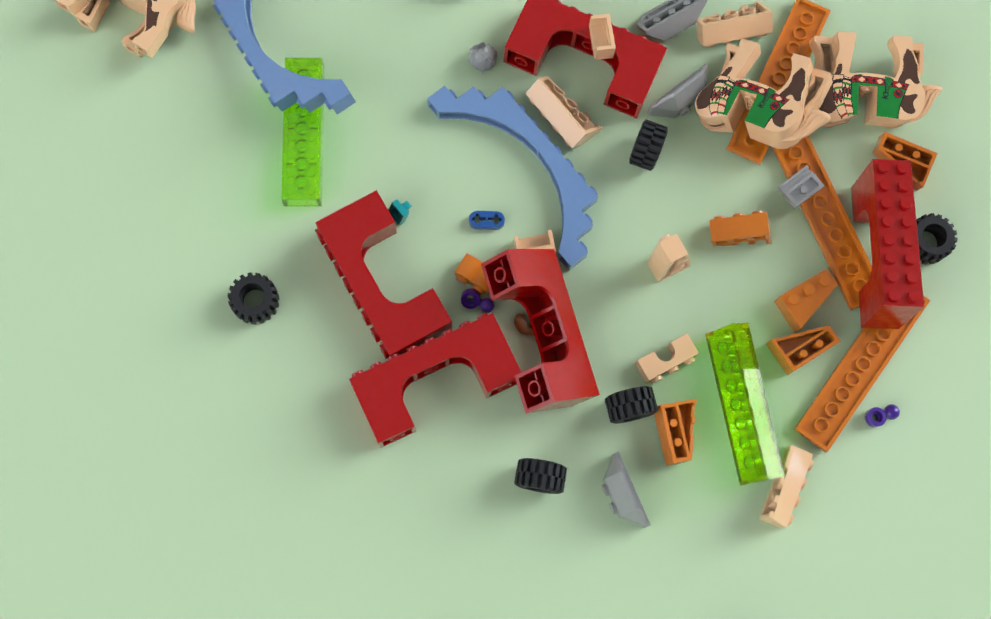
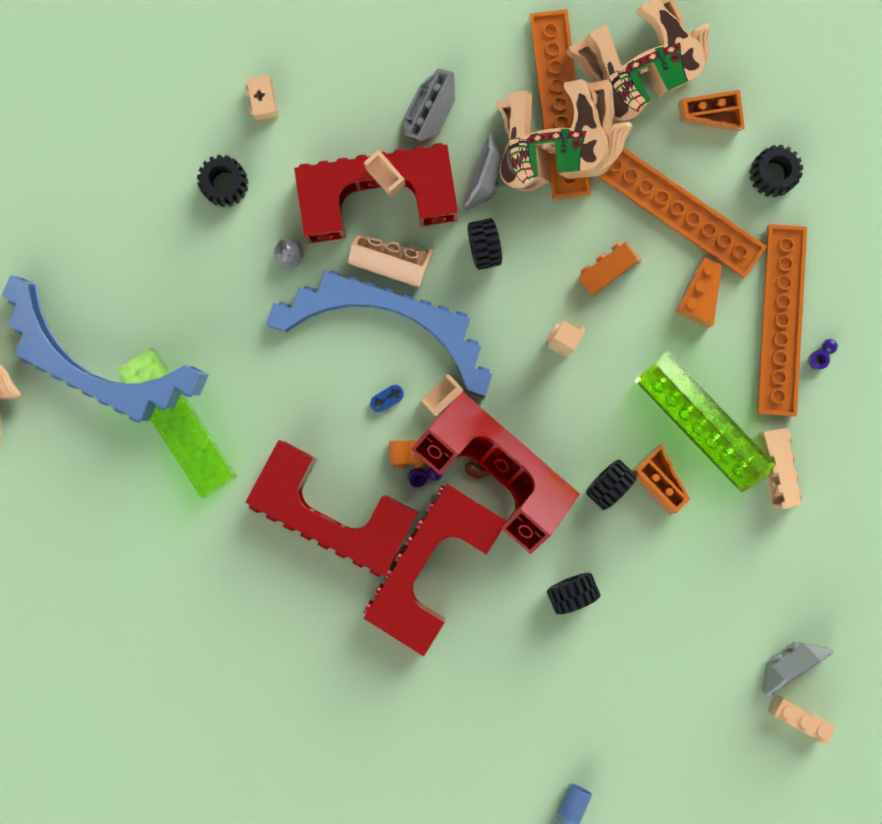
camera: 20 degrees left, 10 degrees up
(247, 284) = (220, 603): black tyre -> none
(399, 211) = (308, 440): teal tile -> none
(622, 493) = (648, 561): light grey wedge -> none
(682, 352) = (625, 408): light nougat arch -> none
(735, 25) = (491, 77): light nougat wedge -> none
(800, 187) = (638, 196): light grey plate -> none
(800, 348) = (724, 340): orange wedge -> none
(886, 201) = (773, 240): red arch -> none

